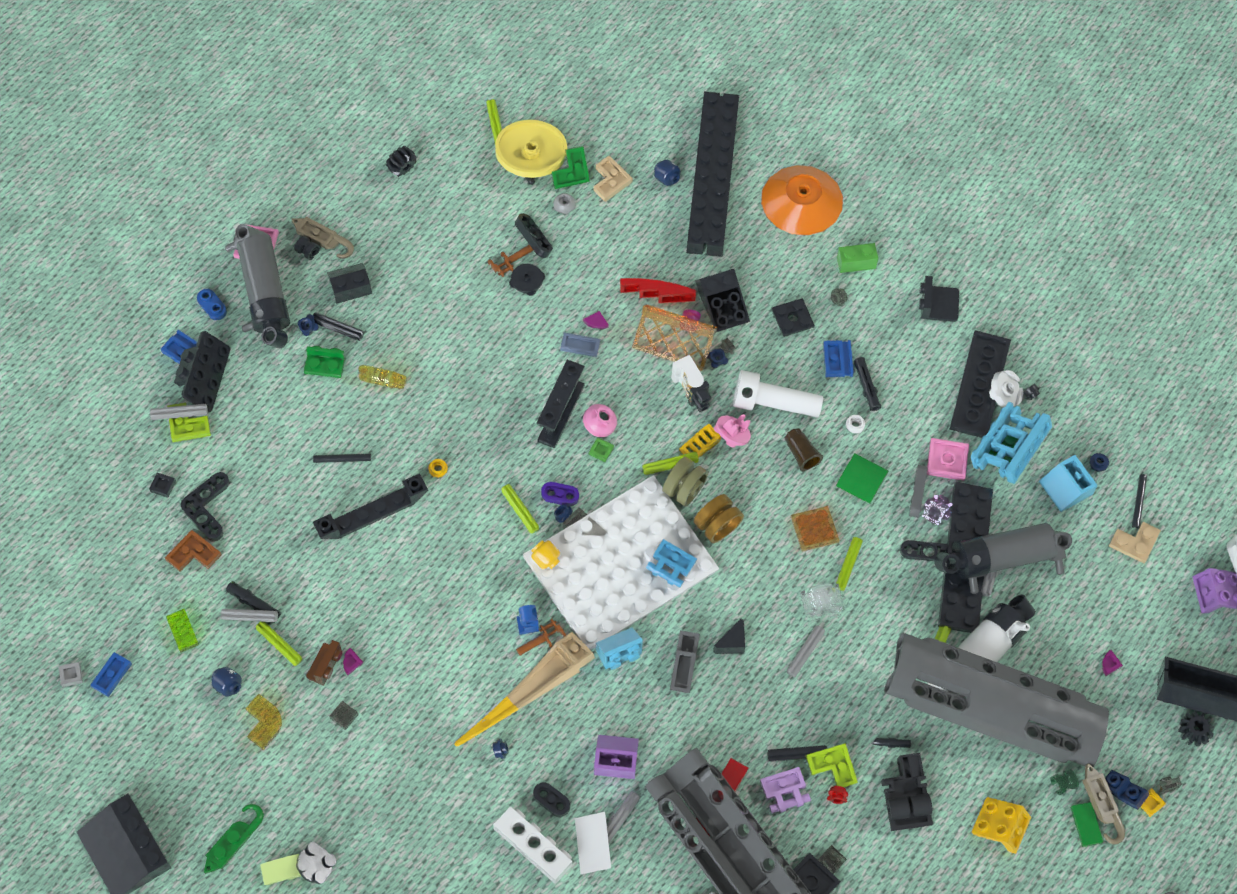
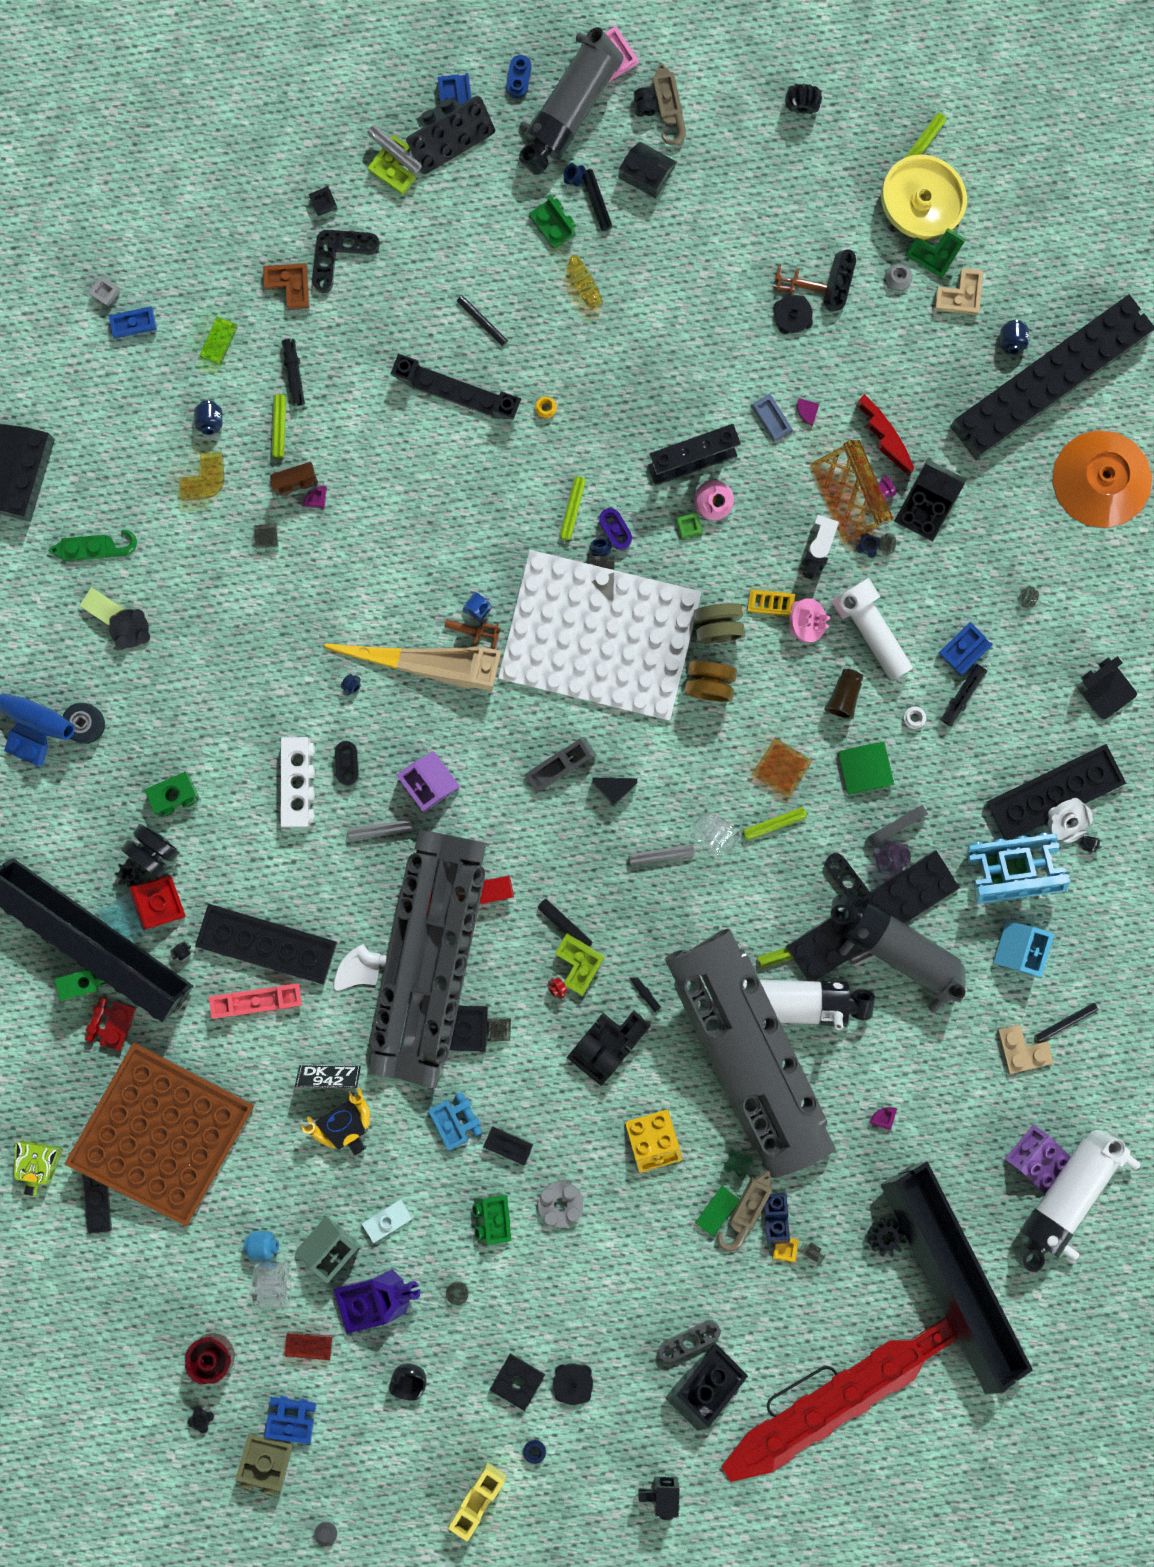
camera: 50 degrees right, 20 degrees up
(249, 615) = (277, 381): light grey axle -> none
(545, 554) = (541, 570): yellow head -> none
(592, 843) = (341, 827): white sticker -> none
(619, 648) = (521, 702): medium azure slope -> none
(667, 464) = (728, 594): lime axle -> none
(674, 558) = (639, 676): dark azure plate -> none
(782, 784) = (526, 935): lavender plate -> none
(796, 308) = (968, 561): black piece -> none
(857, 257) = (1083, 579): bright green brick -> none
(947, 459) = (953, 825): bright pink plate -> none
(1097, 466) = (1067, 961): dark blue plate -> none

